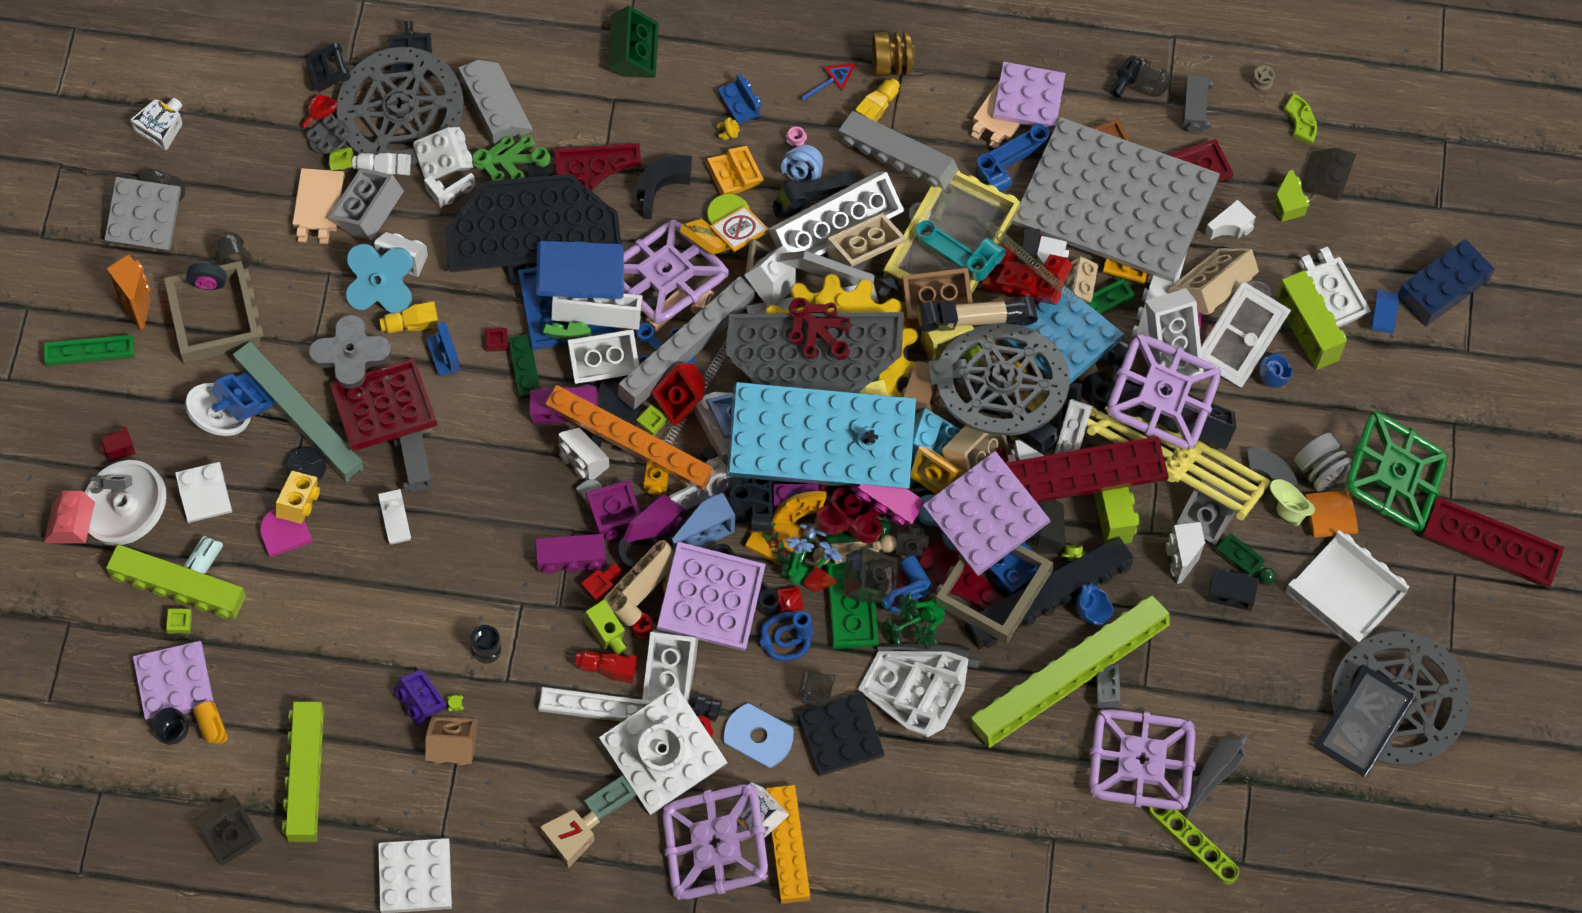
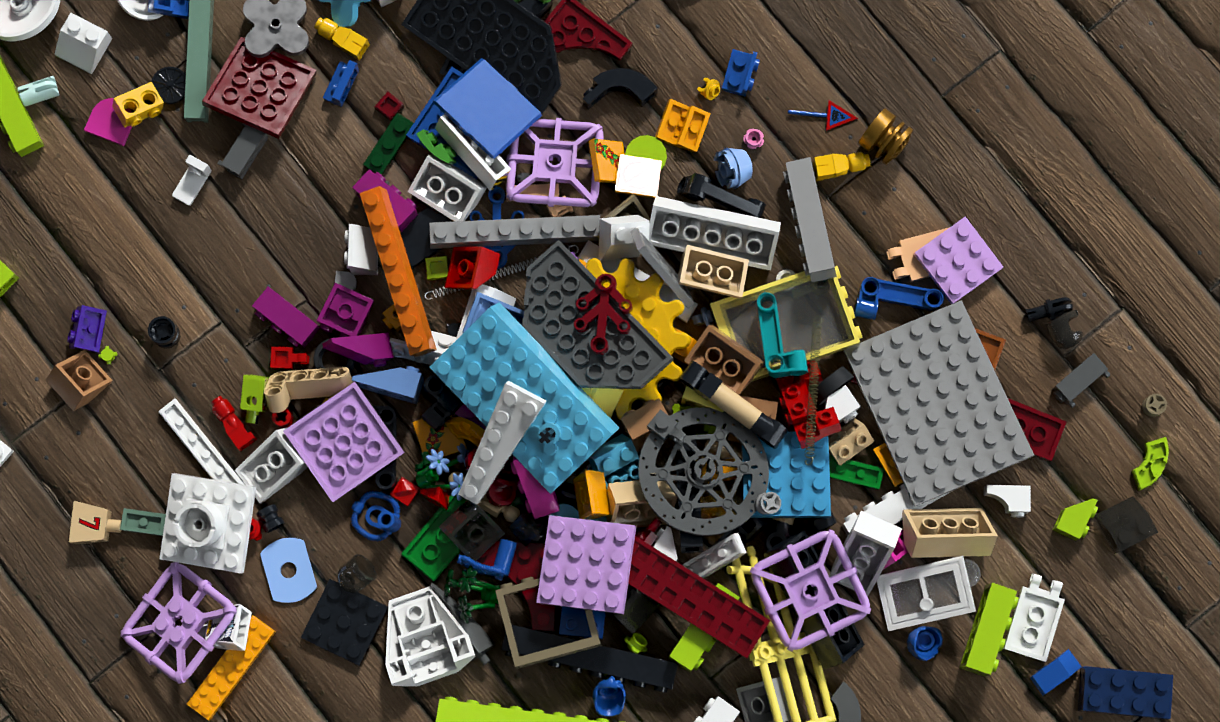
camera: 45 degrees right, 15 degrees up
(832, 461) = (506, 427): none -> white wing
(1072, 358) = (772, 501): none -> light grey wheel

